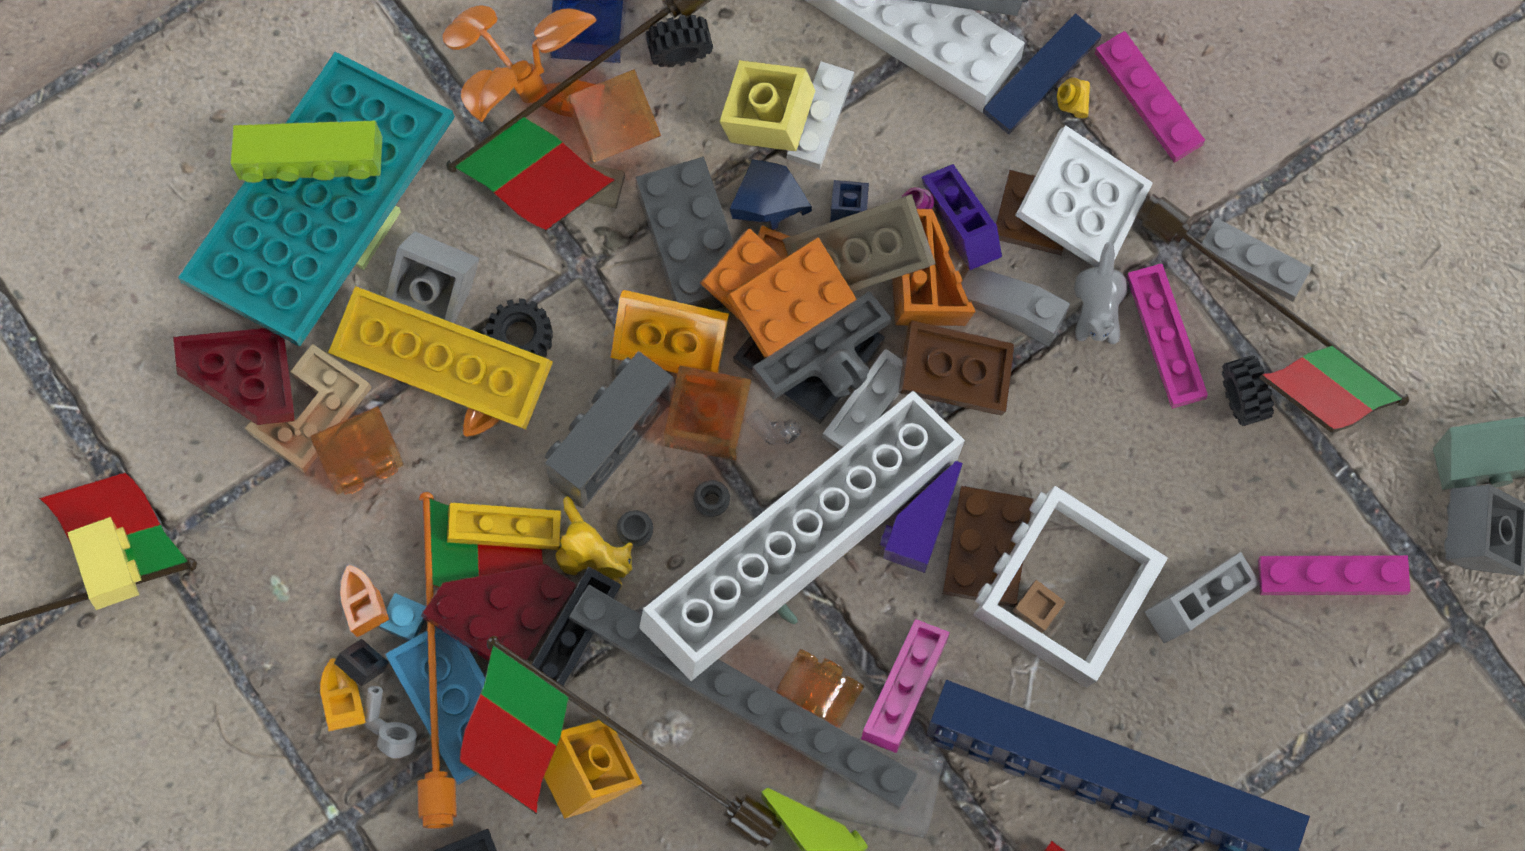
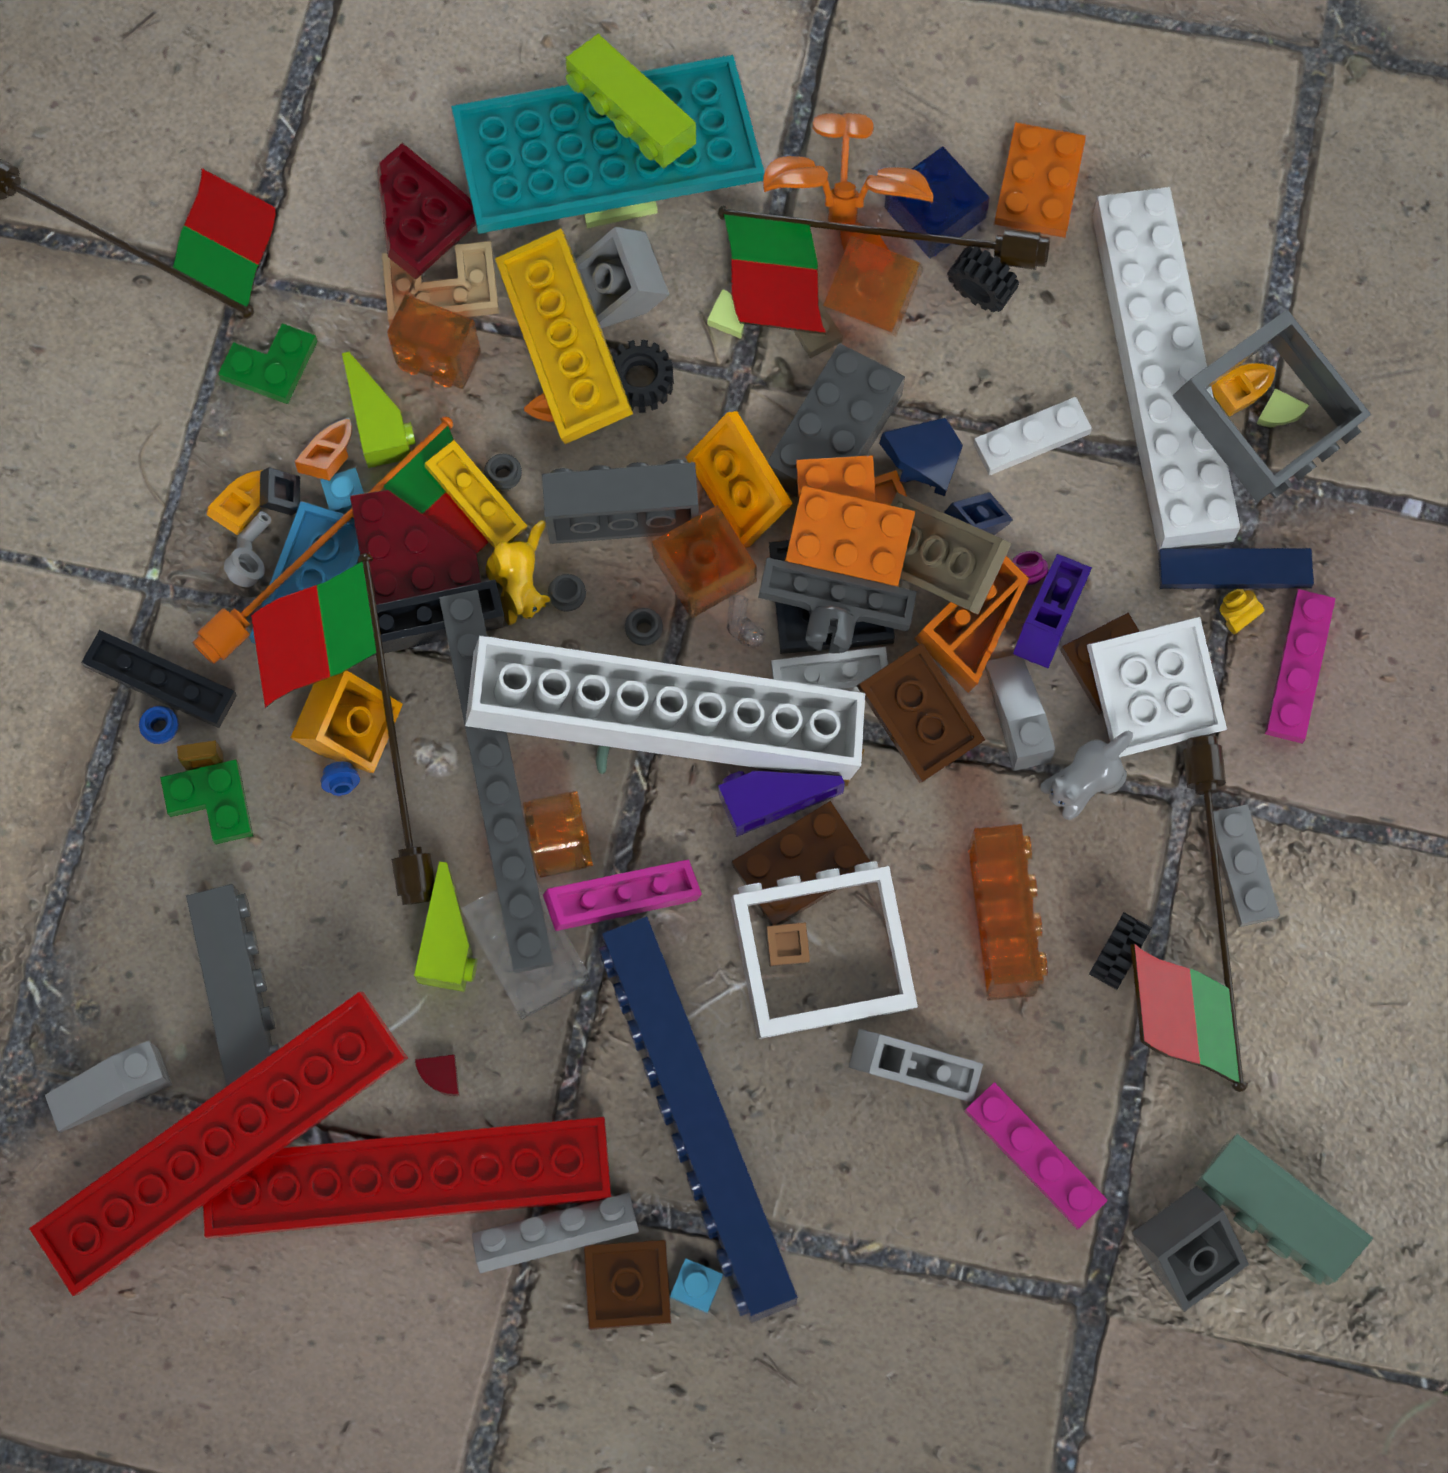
camera: 50 degrees right, 0 degrees up
(104, 563) = (188, 250): light yellow brick -> none
(259, 587) = (271, 373): none -> green plate
(373, 543) = (379, 421): none -> lime slope
(495, 482) = (500, 462): none -> dark grey plate
(529, 236) = (724, 316): none -> yellowish green tile
(627, 810) = (339, 778): none -> blue plate
(767, 105) = (995, 387): light yellow brick -> none
(1154, 439) = (1005, 912): none -> clear orange brick
(1167, 336) = (1108, 851): dark pink plate -> none

